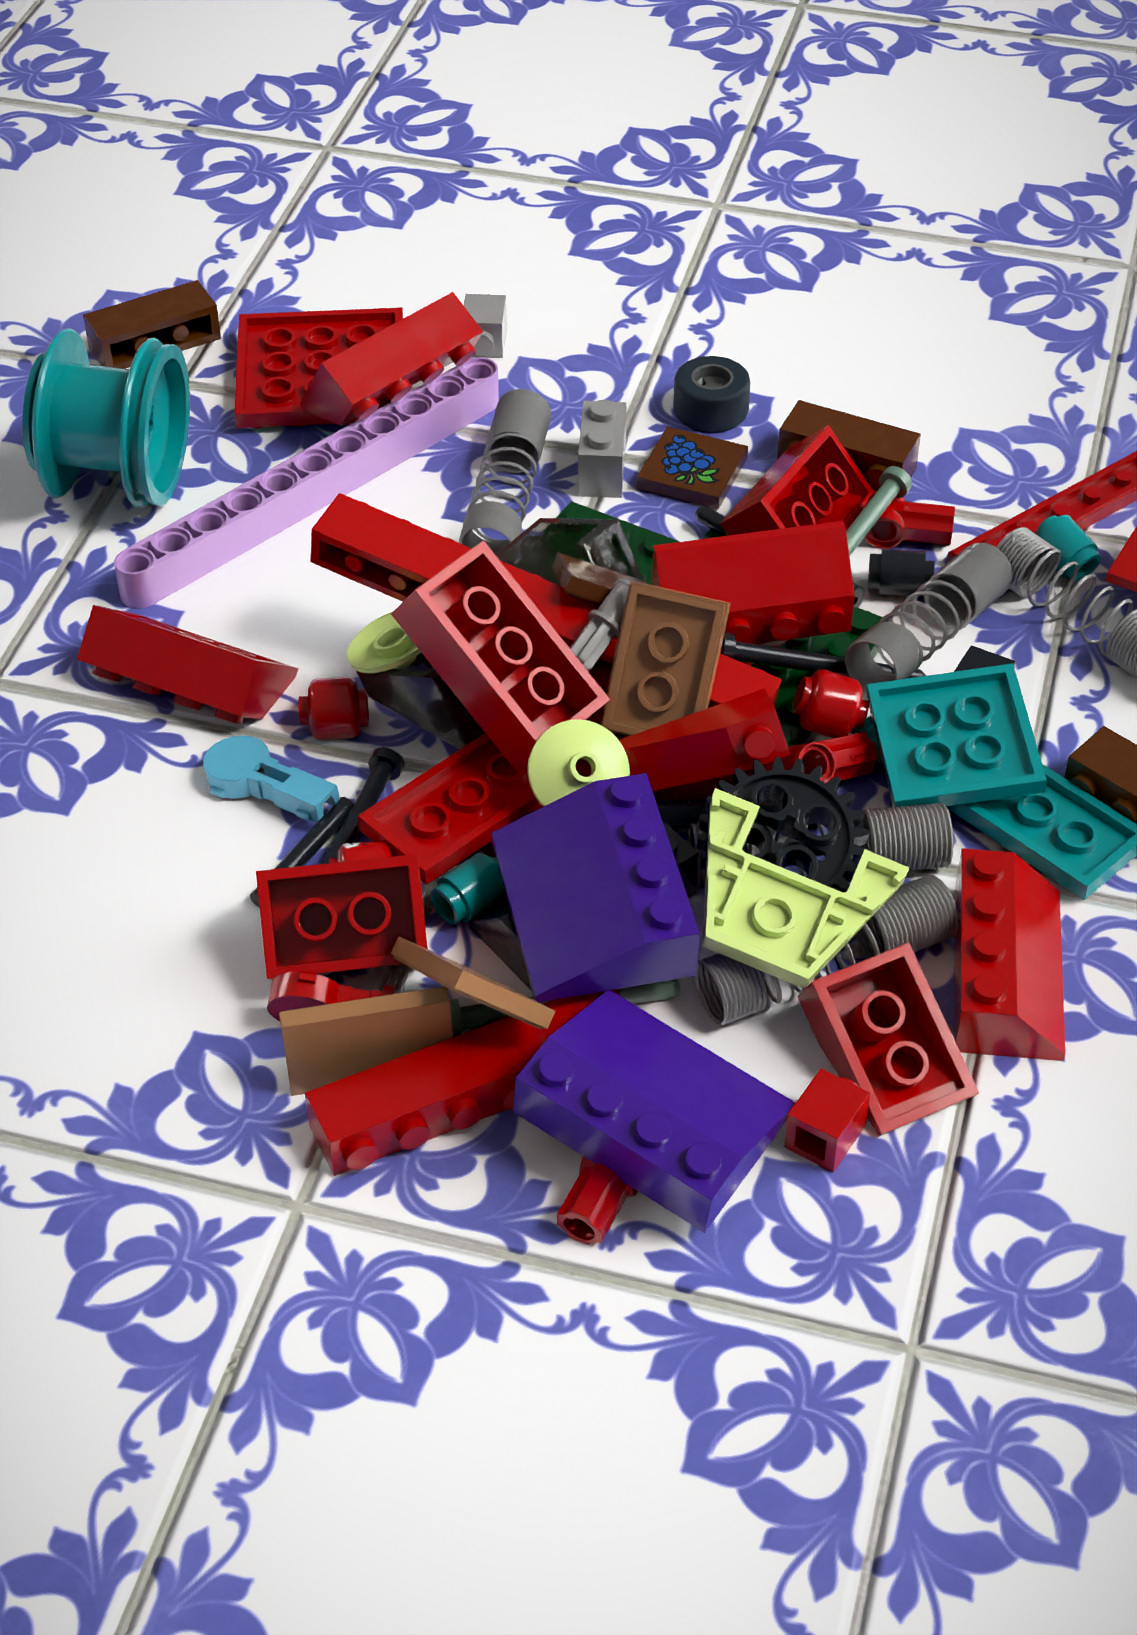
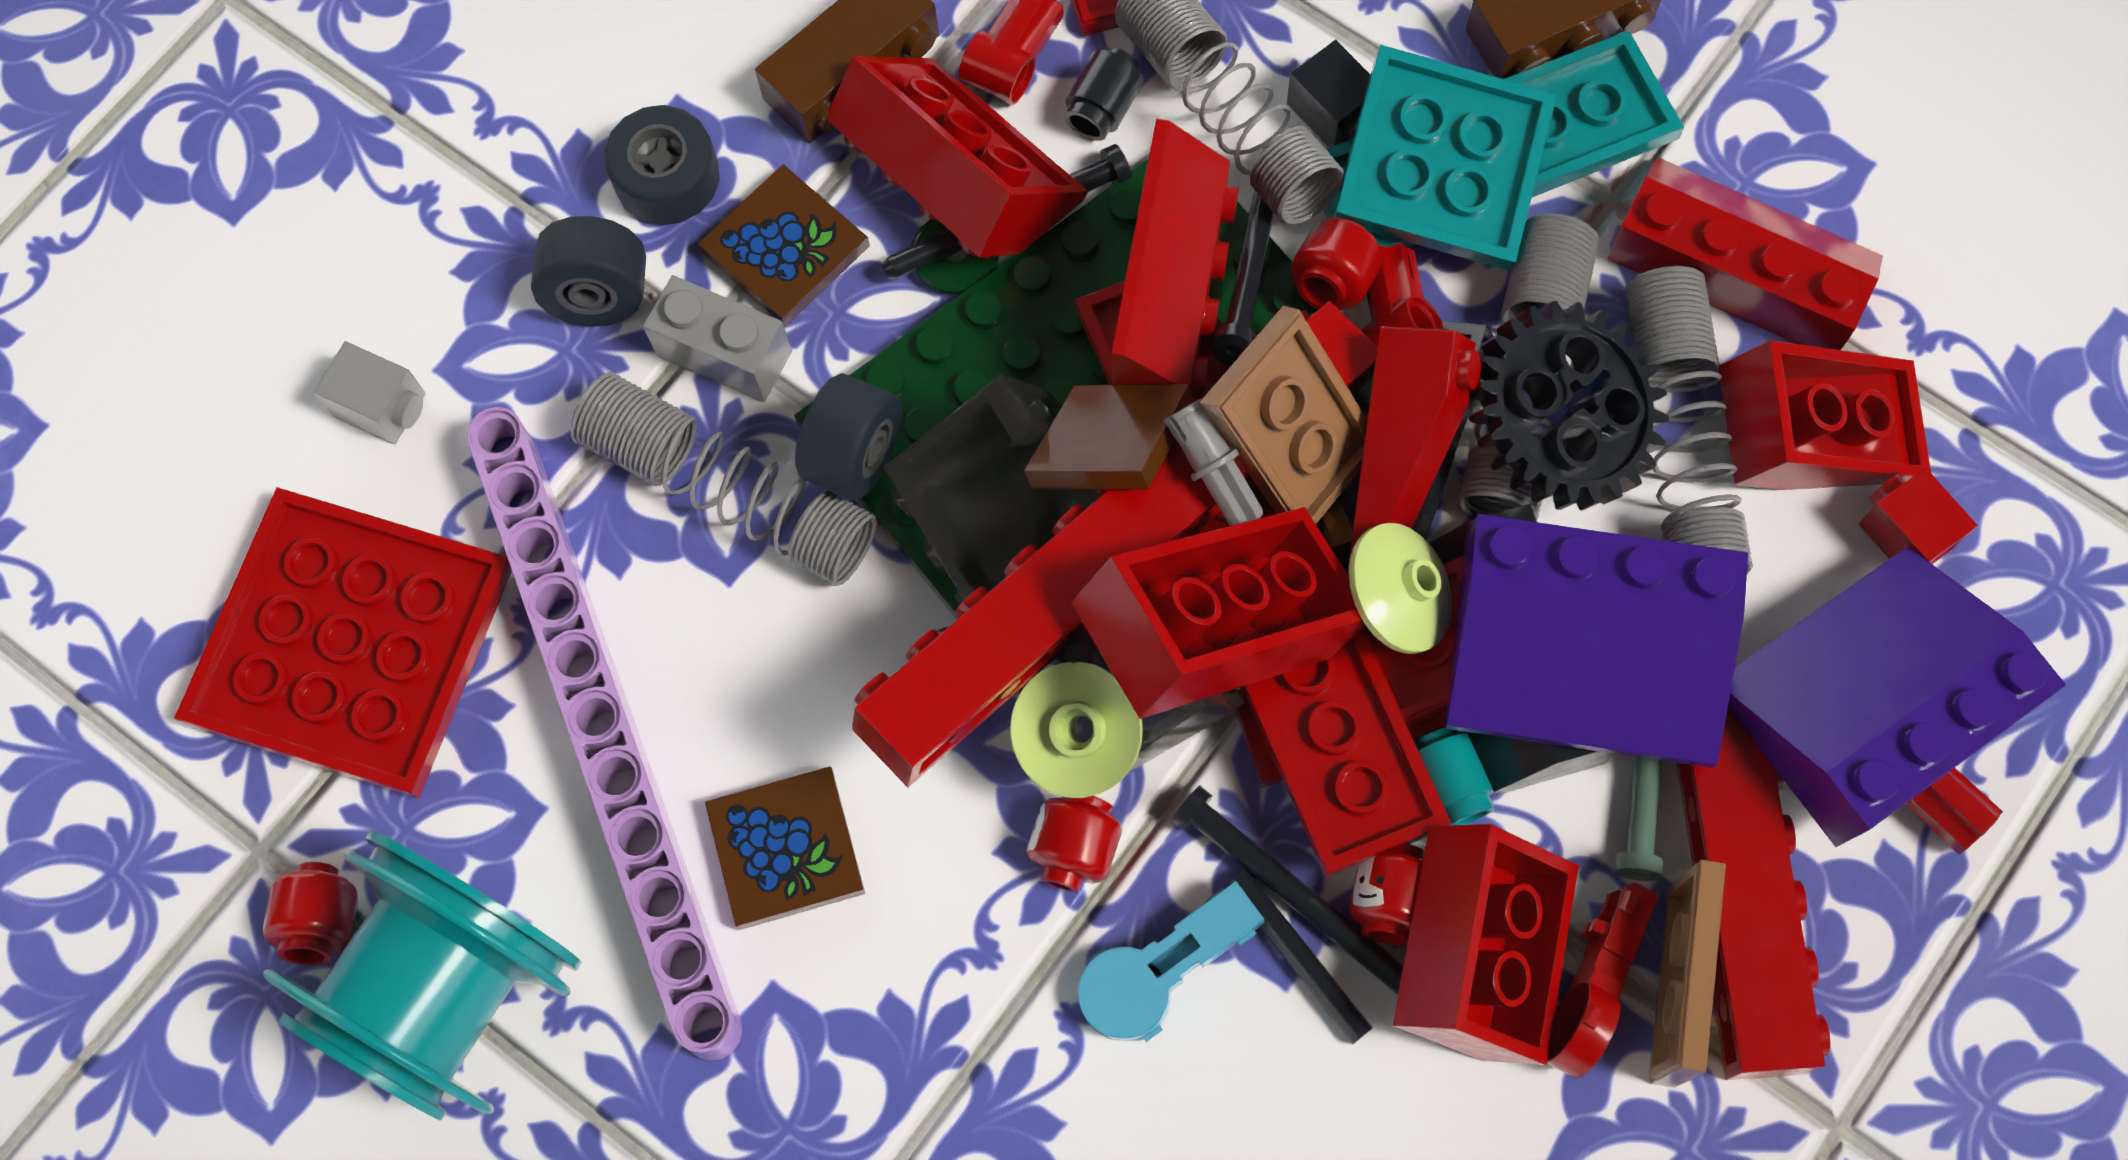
camera: 65 degrees left, 25 degrees up
(173, 316) = (131, 853): reddish brown brick -> none
(183, 664) = (909, 1006): red slope -> none
(272, 586) = (784, 848): none -> reddish brown tile
(392, 361) = (455, 544): red slope -> none
(472, 984) = (1677, 830): medium nougat tile -> none
(552, 489) = (848, 436): none -> black wheel
(614, 373) = (588, 271): none -> black wheel
(777, 916) = (1693, 464): yellowish green wing -> none
(893, 484) = (983, 31): sand green bar -> none

